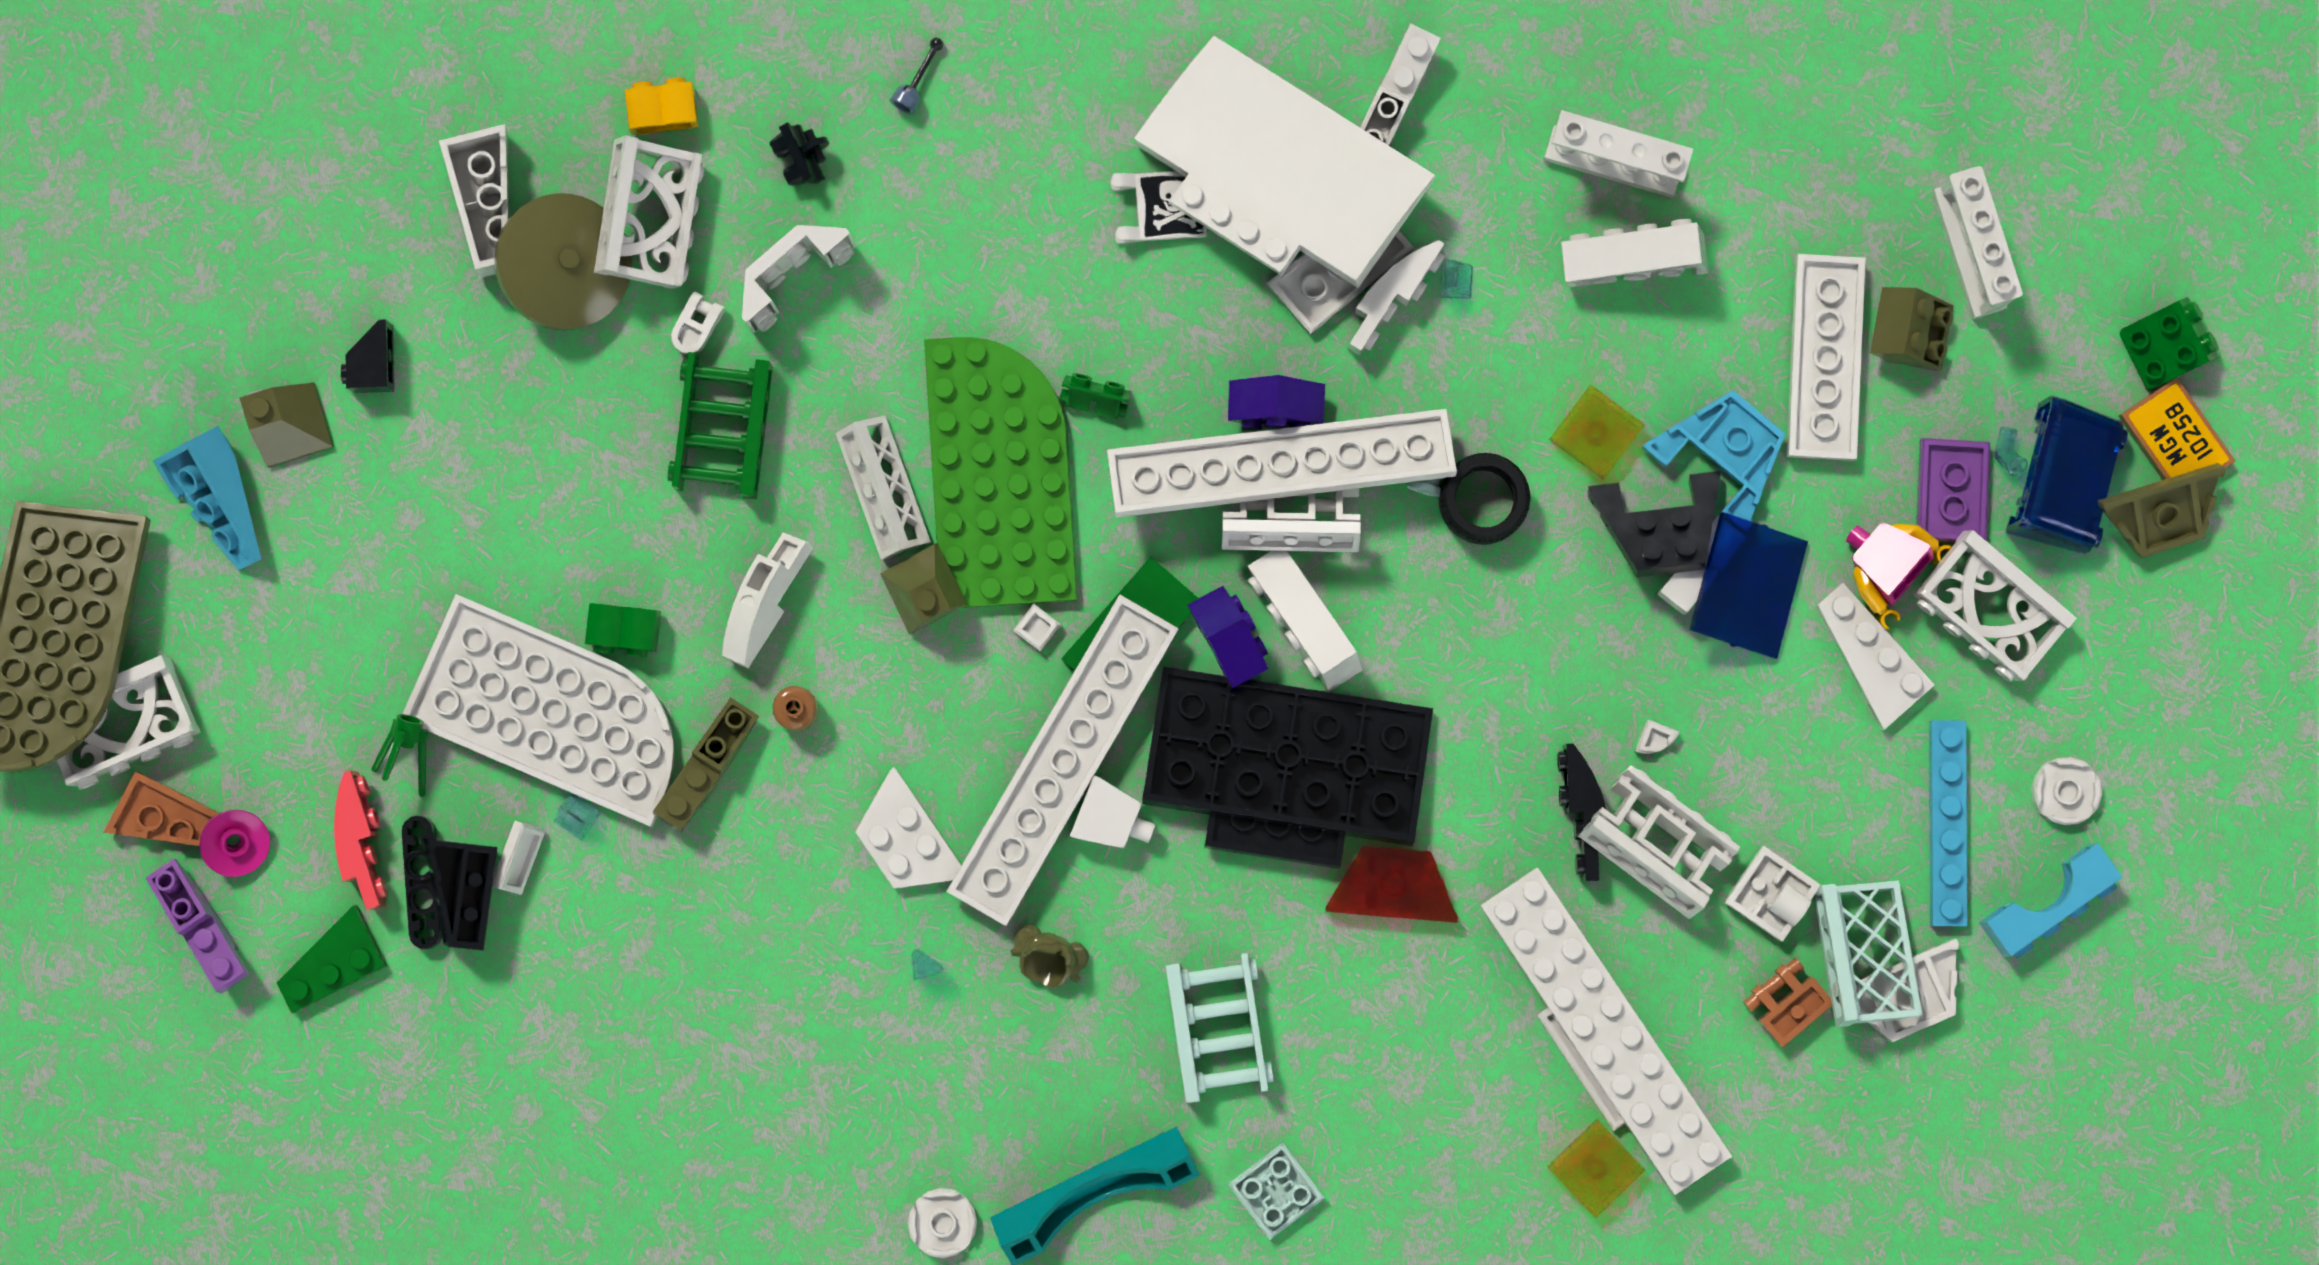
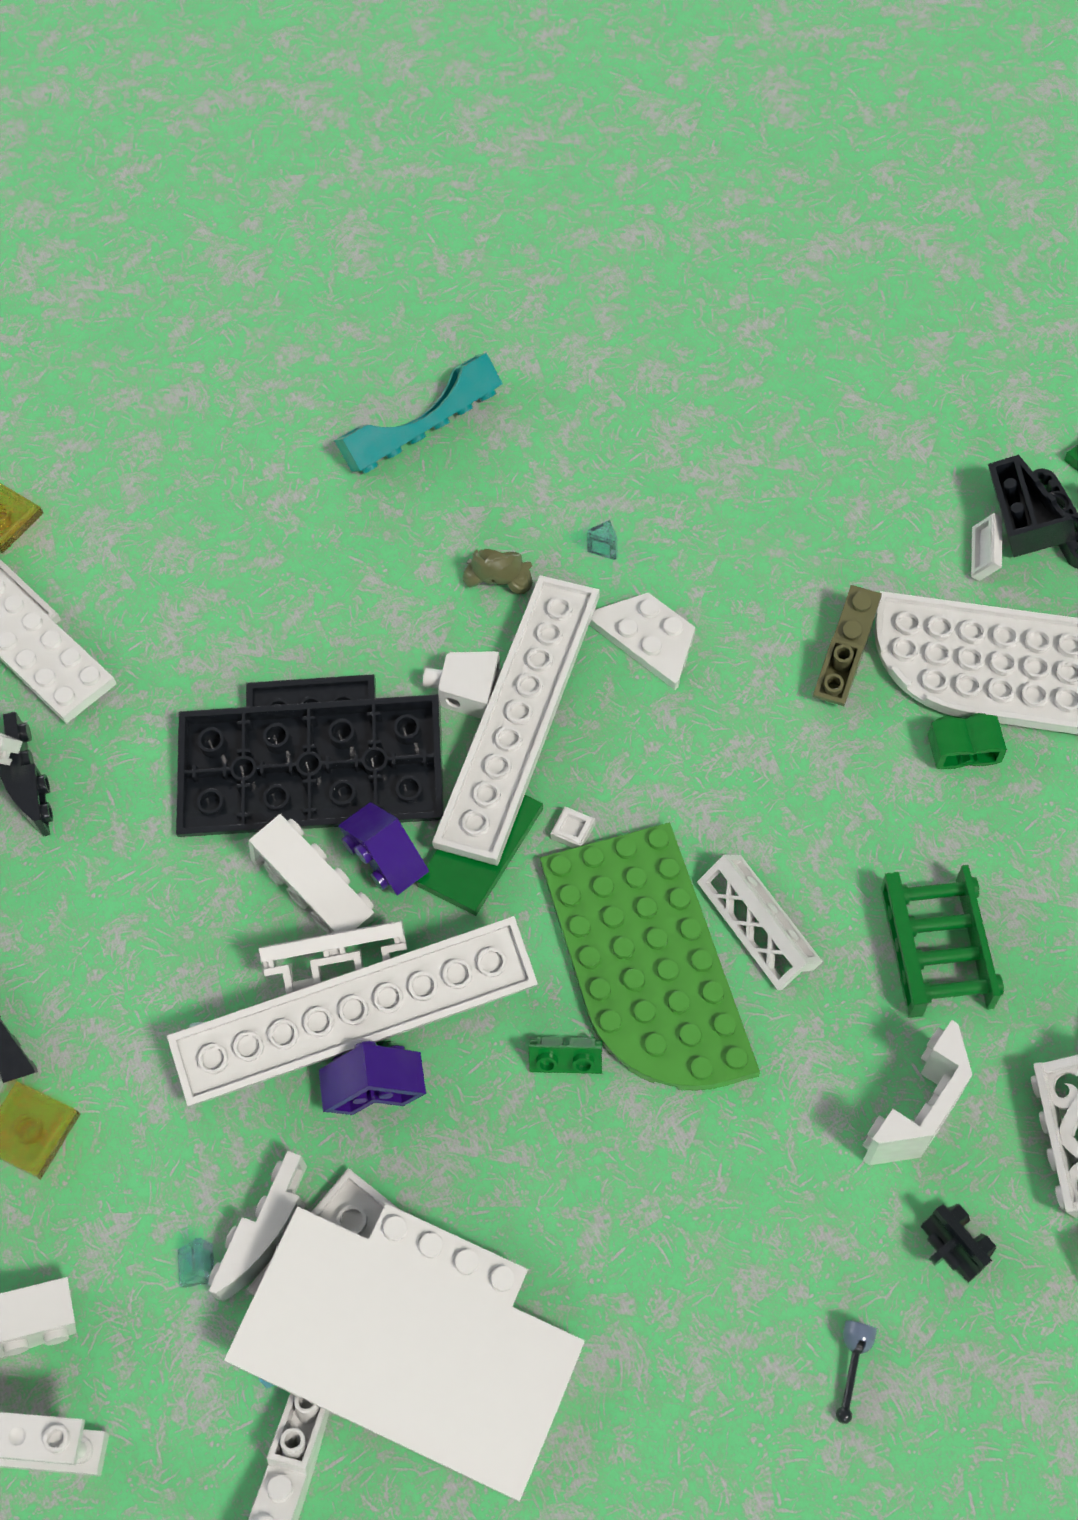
camera: 170 degrees right, 25 degrees down
(576, 816) = (947, 590): clear light blue slope -> none
(691, 335) = (1006, 1023): white plate -> none
(756, 604) = (846, 793): white slope -> none
(805, 715) = (781, 706): medium nougat head -> none
(923, 588) = (688, 829): olive slope -> none
(942, 1222) = (541, 383): white tile -> none
(1155, 213) = (546, 1284): flag -> none
(1191, 1048) = (358, 528): light aqua fence -> none
(1276, 1190) = (271, 454): light aqua tile -> none
(1394, 886) = (197, 680): clear red wing -> none
(1510, 473) = (116, 1011): black tyre -> none

